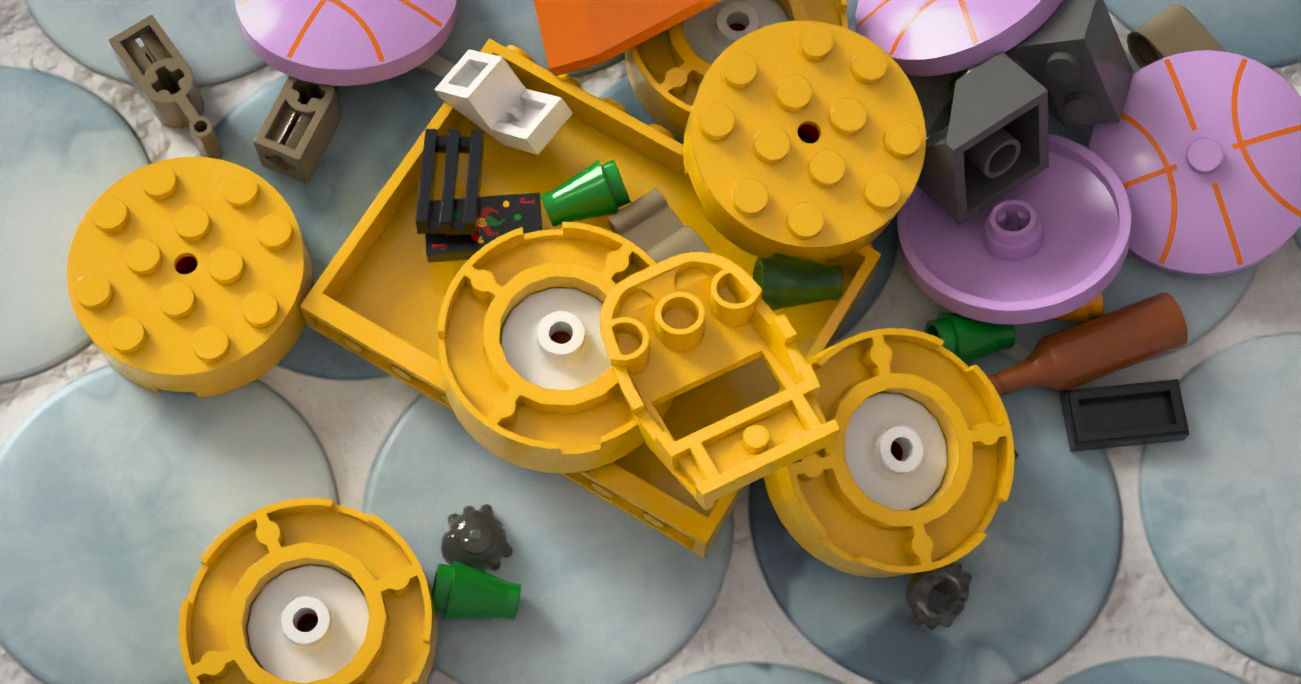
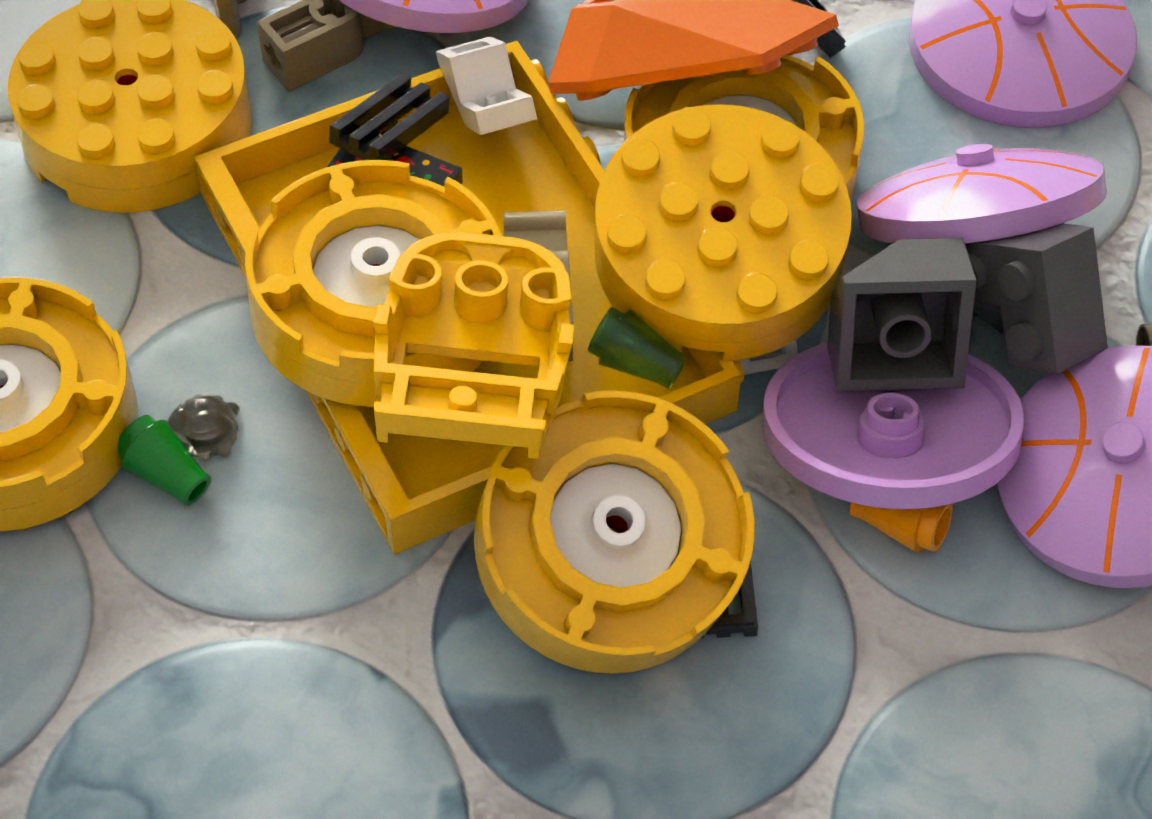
camera: 35 degrees right, 15 degrees down
(587, 195) = (507, 187): green cone -> none
(938, 595) = (588, 711): clear smoke animal -> none
(969, 337) = (784, 499): green cone -> none
(1099, 346) = (899, 571): dark orange piece -> none
(1124, 415) = (894, 652): black tile -> none

